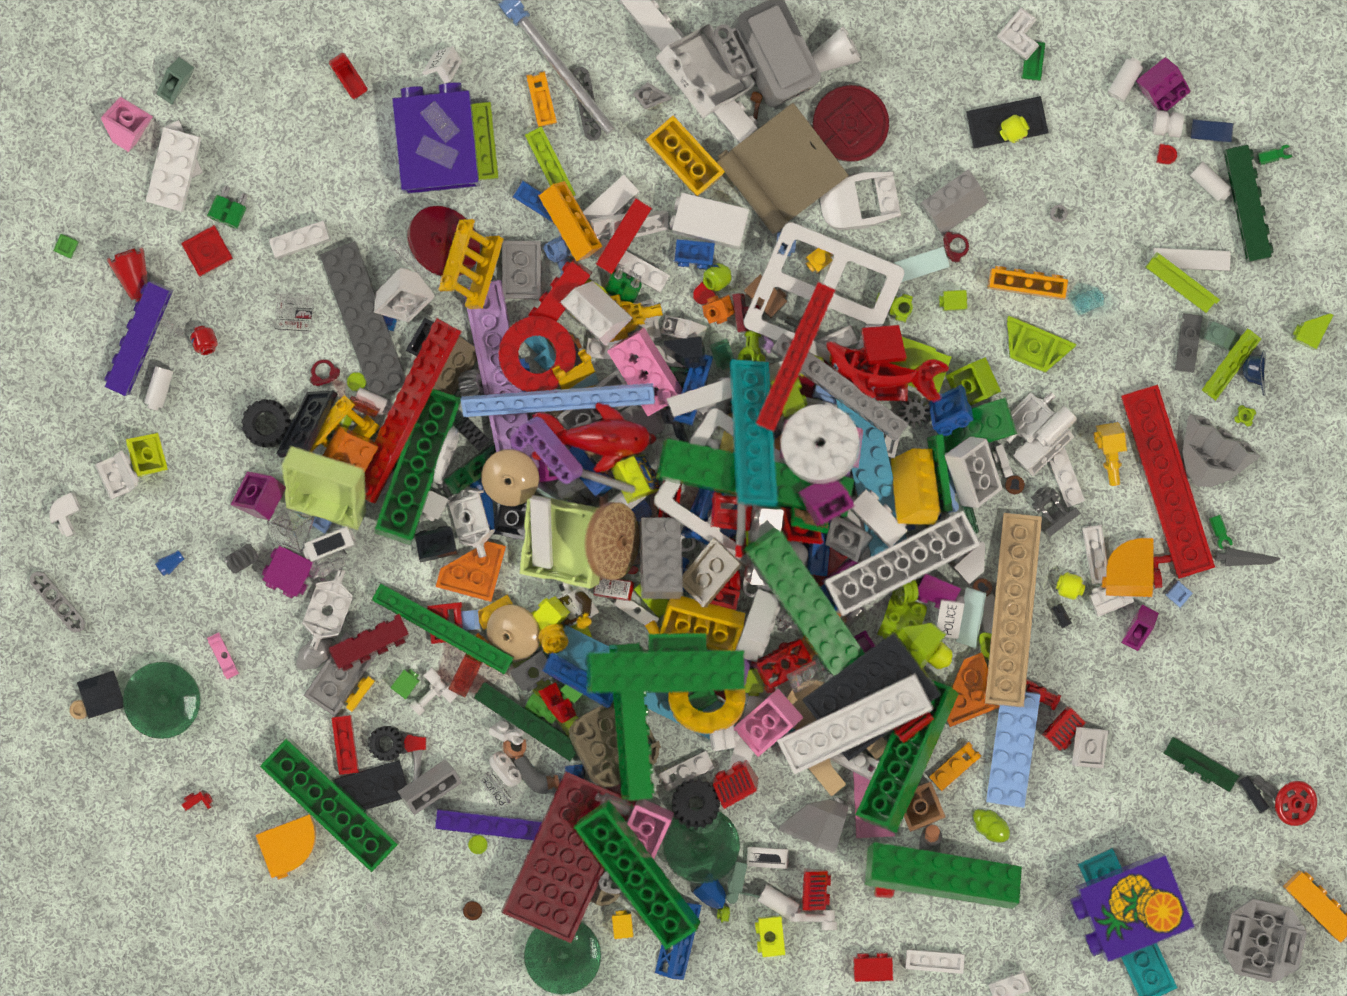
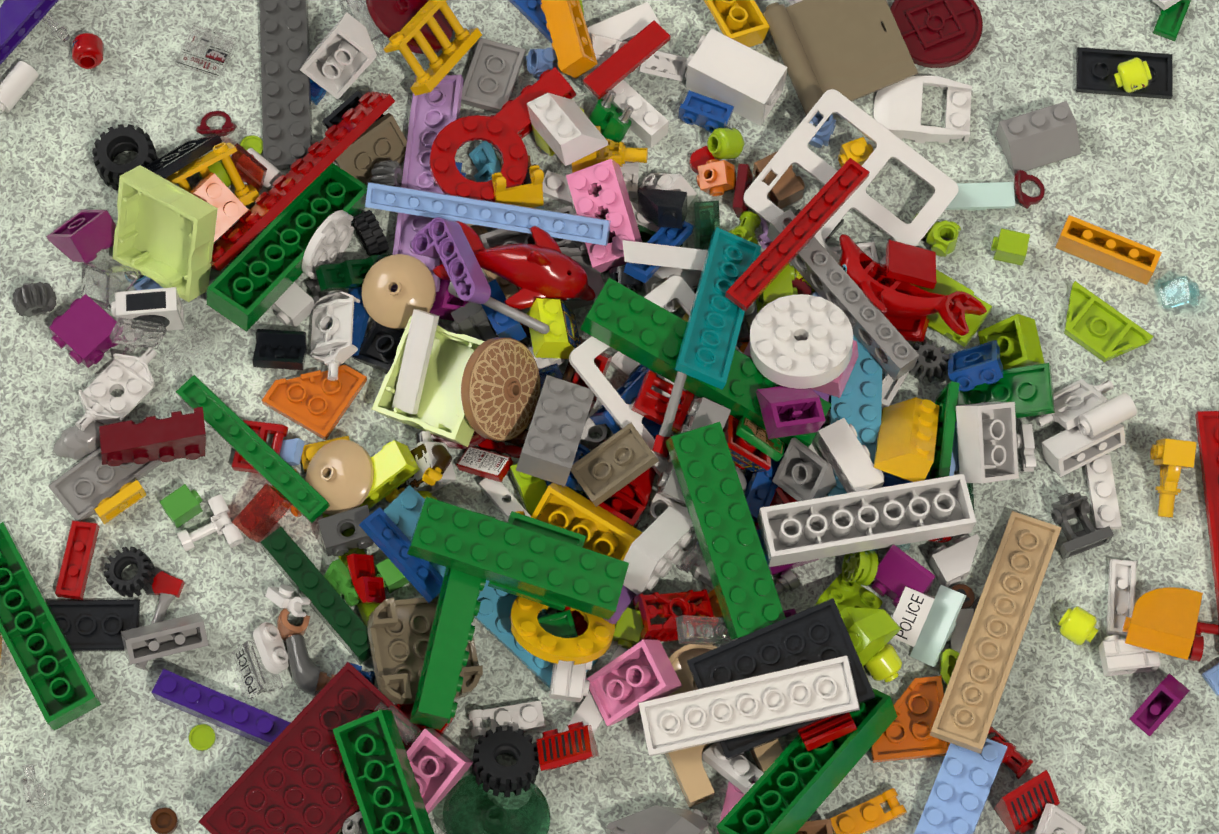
camera: 15 degrees right, 20 degrees down
(553, 638) = (383, 483): yellow wheel -> none
(1014, 484) = (1034, 483): reddish brown tile -> none
(1061, 616) = (1058, 661): black pin -> none
(1064, 215) = (1160, 192): light grey bush -> none

